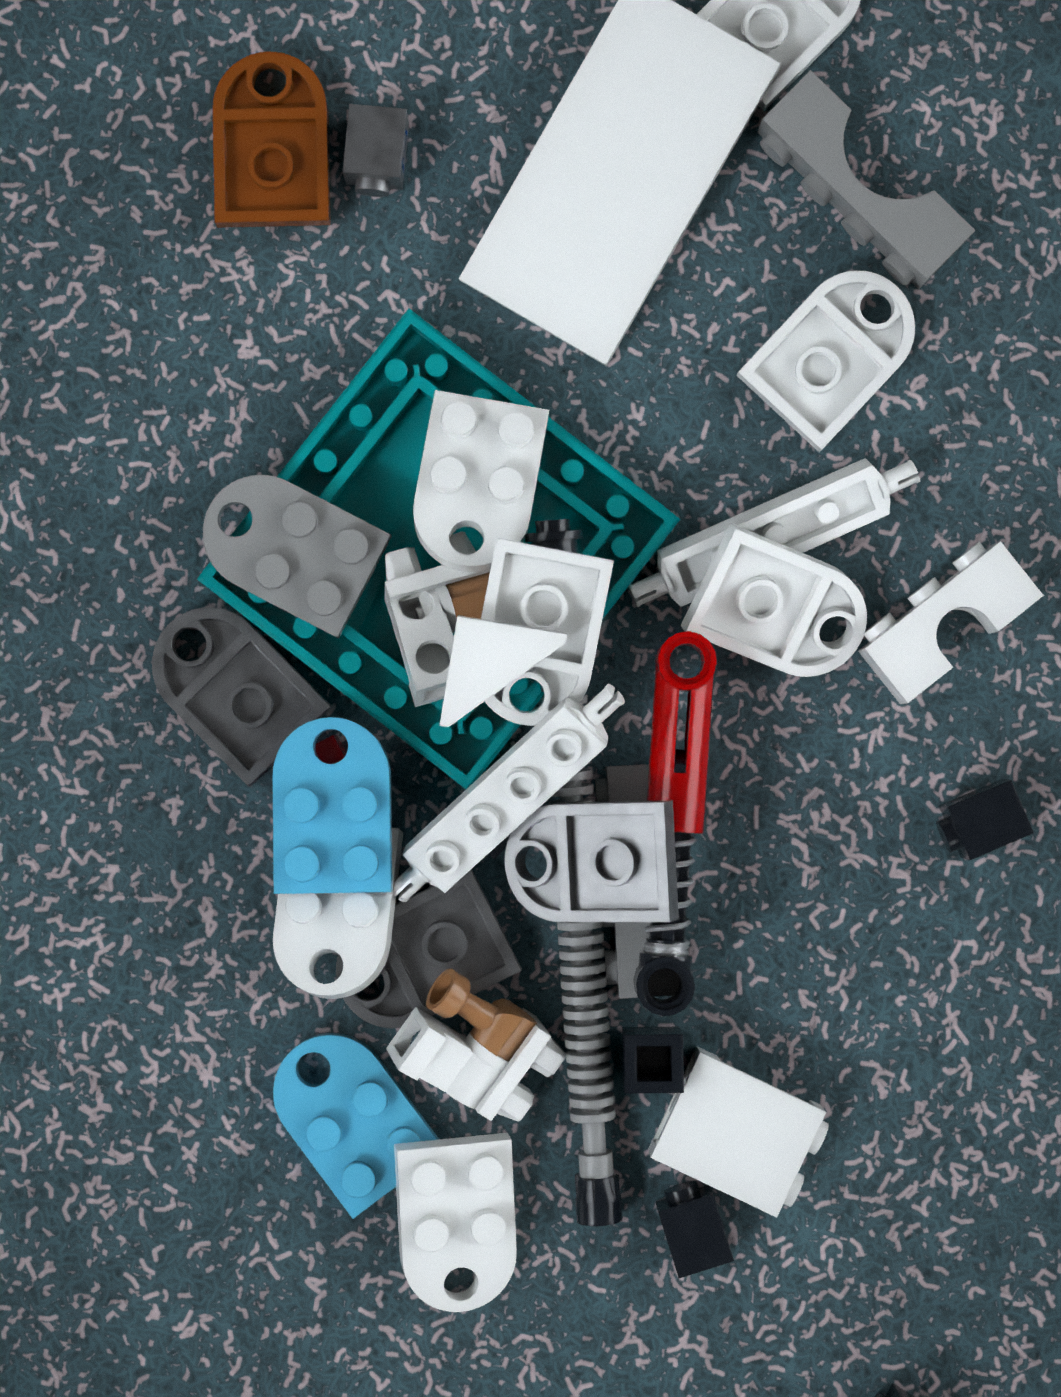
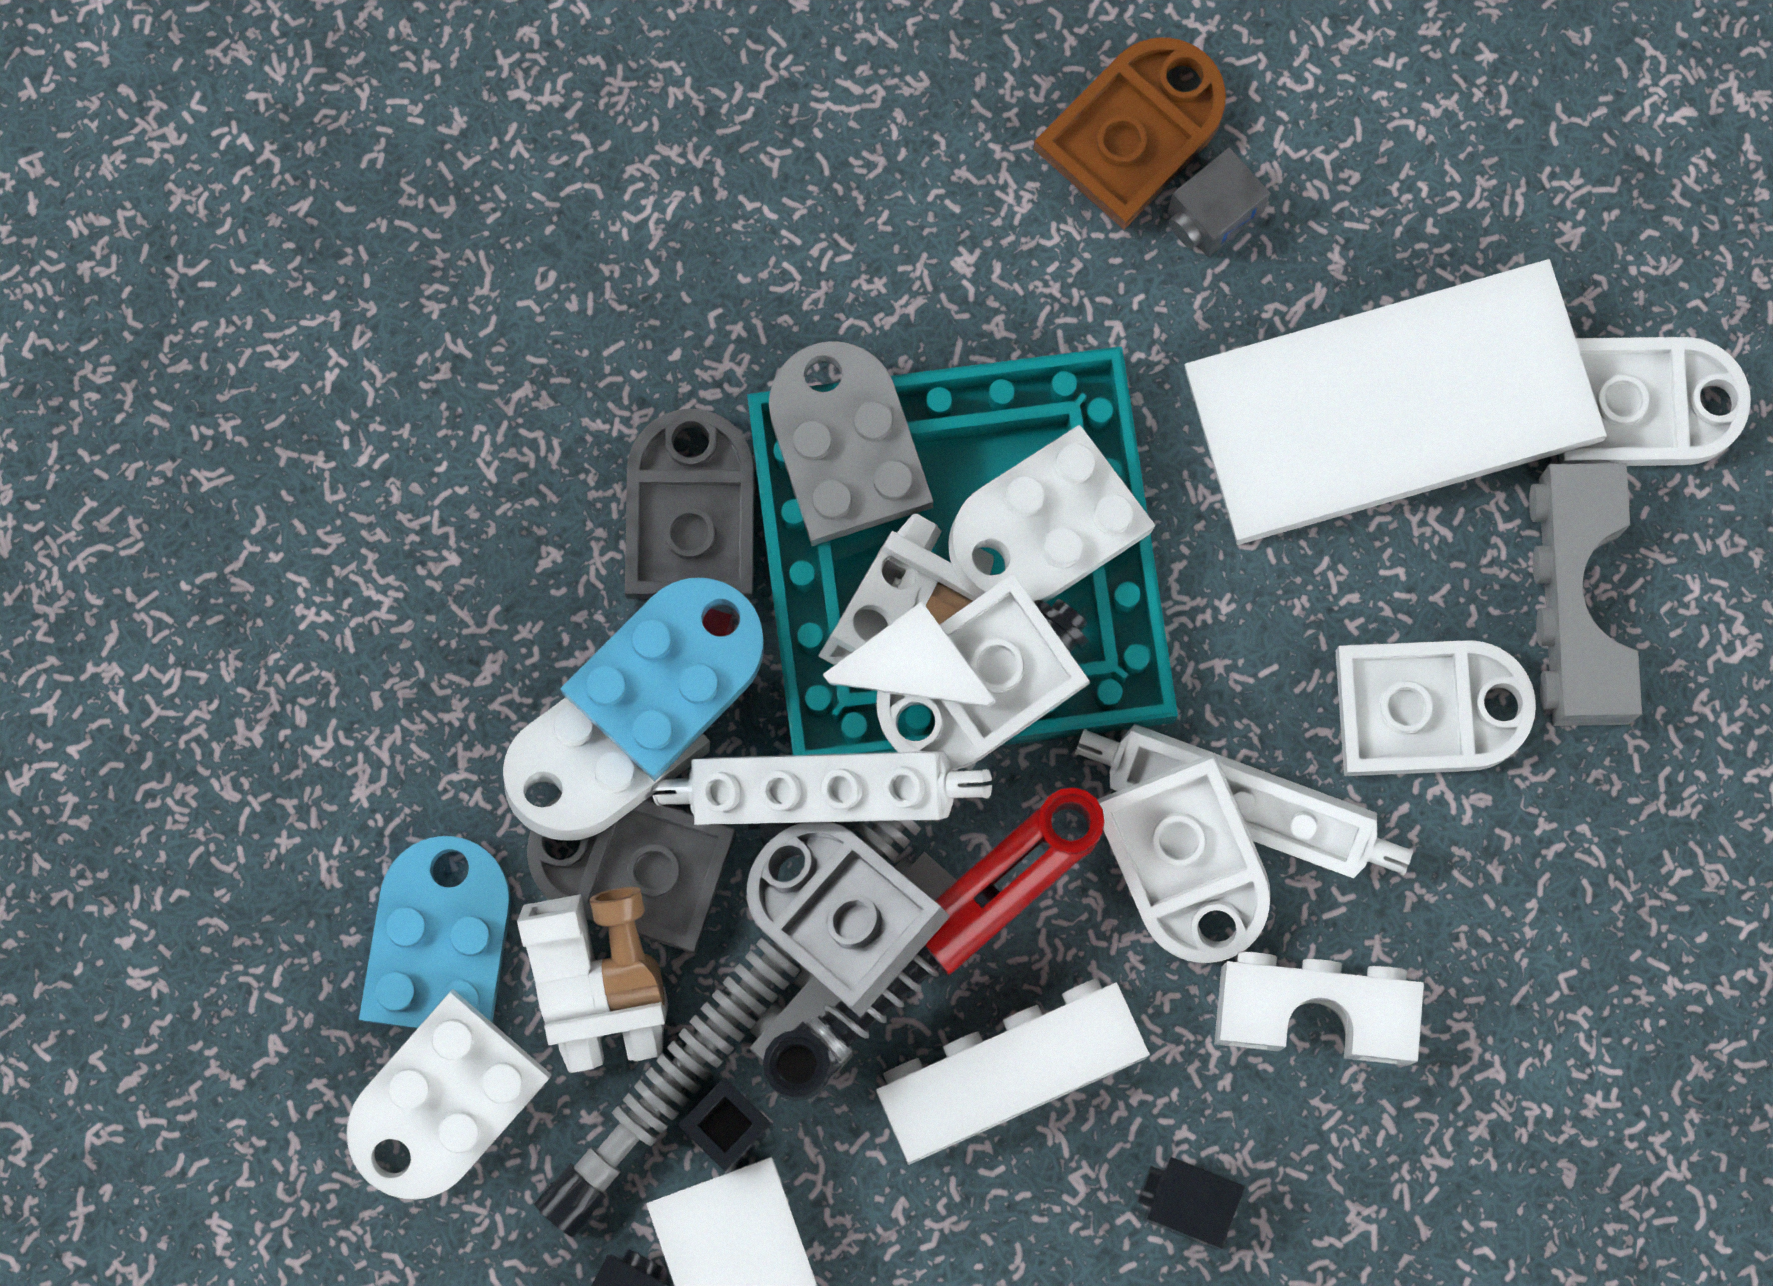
camera: 45 degrees right, 10 degrees down
(794, 849) = (1011, 1072): none -> white brick

